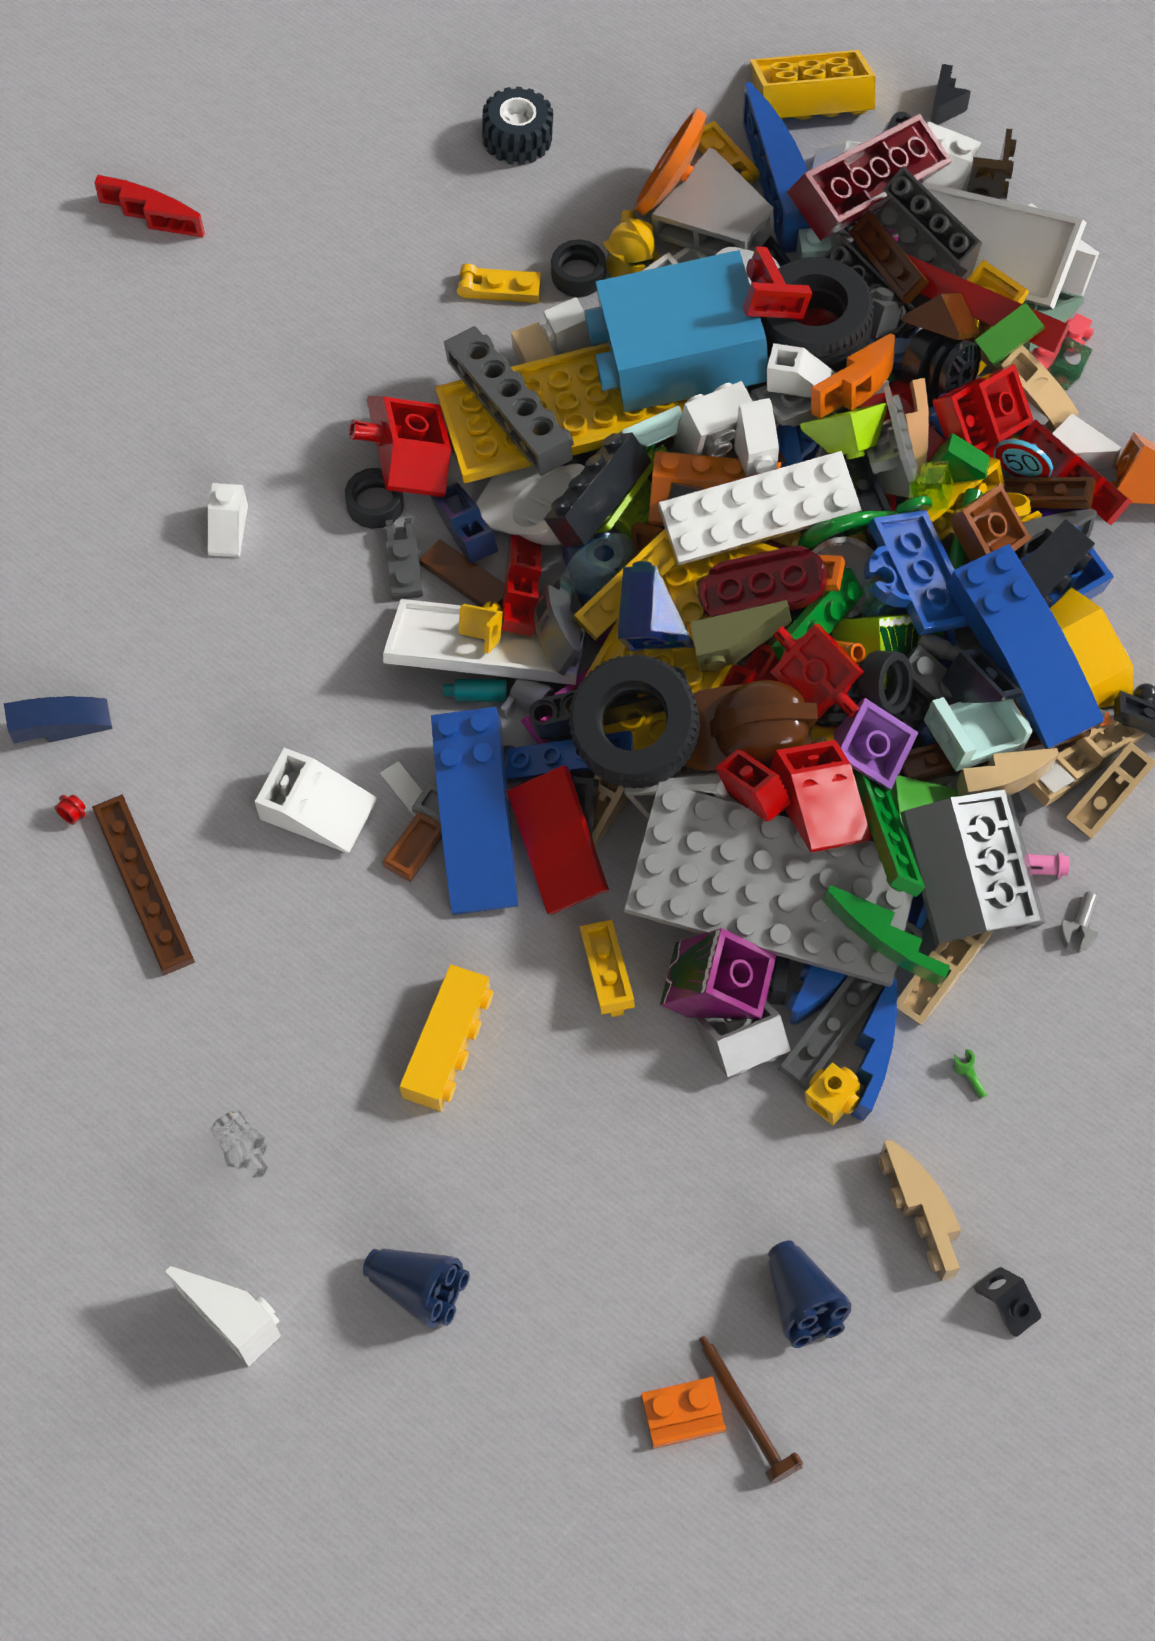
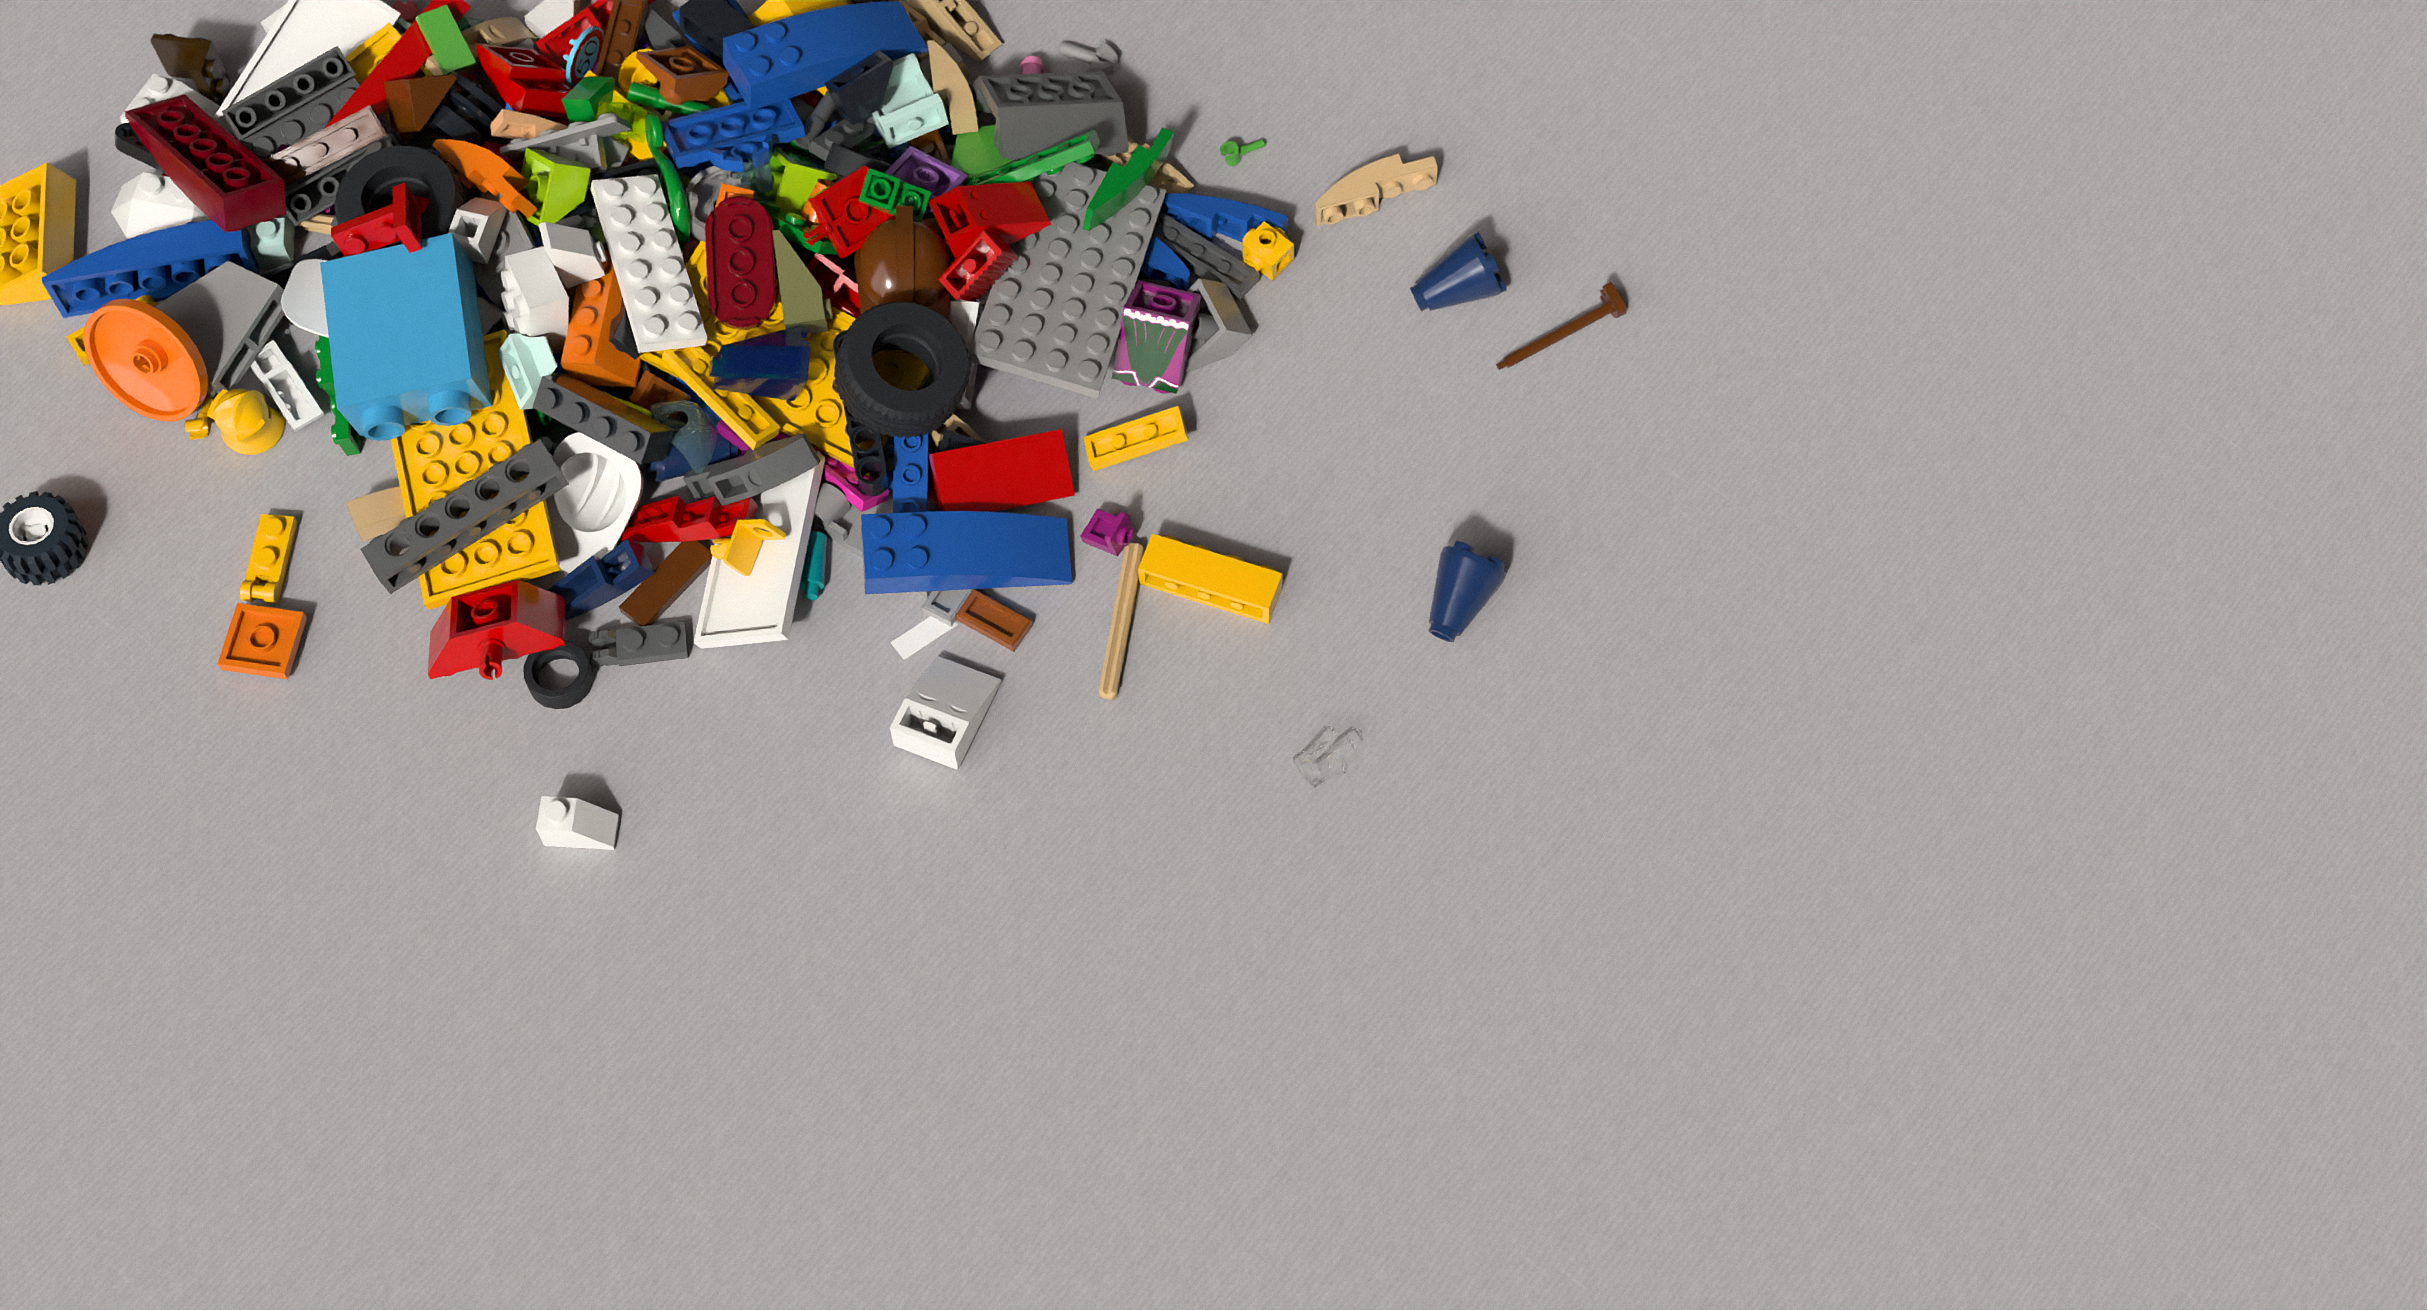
camera: 90 degrees left, 0 degrees up
(56, 718) = (828, 982): dark blue slope -> none
(70, 808) = (941, 958): red plate -> none
(143, 885) = (1030, 880): reddish brown tile -> none
(158, 209) = (102, 936): red slope -> none
(232, 1312) = (1511, 738): white slope -> none
(402, 956) = (1120, 622): none -> tan axle
(418, 286) = (262, 641): none -> orange plate
(500, 942) = (1108, 532): none -> magenta bracket
(567, 326) = (357, 468): white slope -> none
(577, 250) = (250, 456): black tyre -> none
(683, 1412) = (1566, 381): orange plate -> none
(834, 704) = (887, 192): none -> green slope
(948, 99) = (68, 115): black slope -> none
(1011, 1299) = (1456, 124): black bracket -> none

